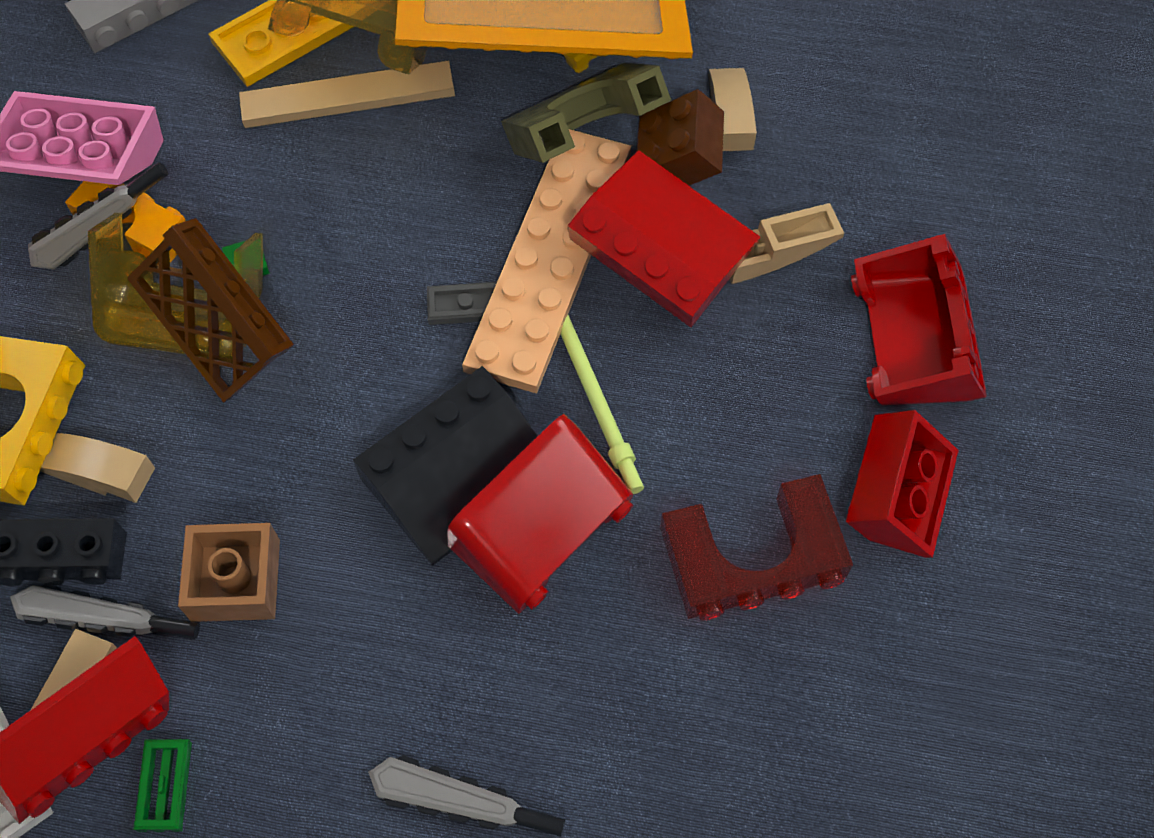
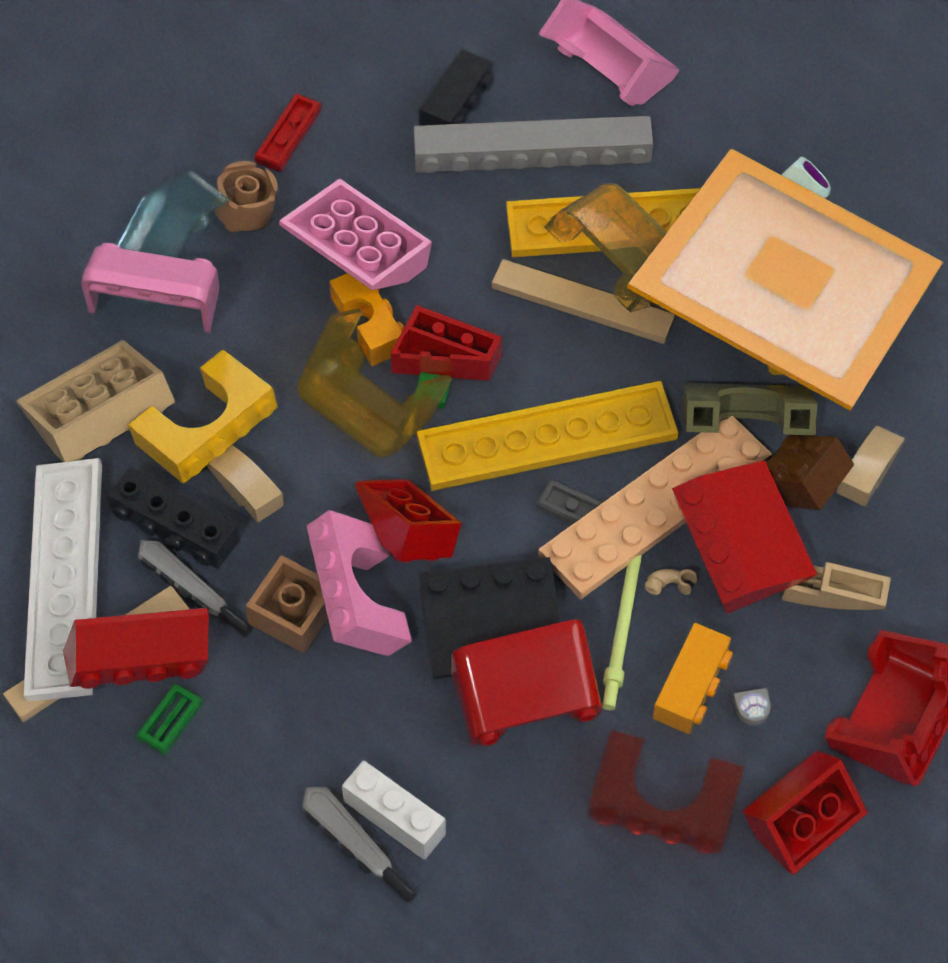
camera: 30 degrees right, 5 degrees down
(70, 233) = (309, 309): light grey sword -> none
(225, 293) = (400, 410): reddish brown fence -> none
(240, 202) = (444, 347): none -> red wedge
(305, 409) = (408, 520): none -> red slope
(310, 549) = (353, 617): none -> bright pink arch
(394, 245) = (546, 435): none -> yellow plate
(483, 739) = (394, 810): none -> white brick
(604, 324) = (662, 577): none -> tan arm
(704, 411) = (693, 679): none -> light orange brick
(777, 406) = (752, 706): none -> tile

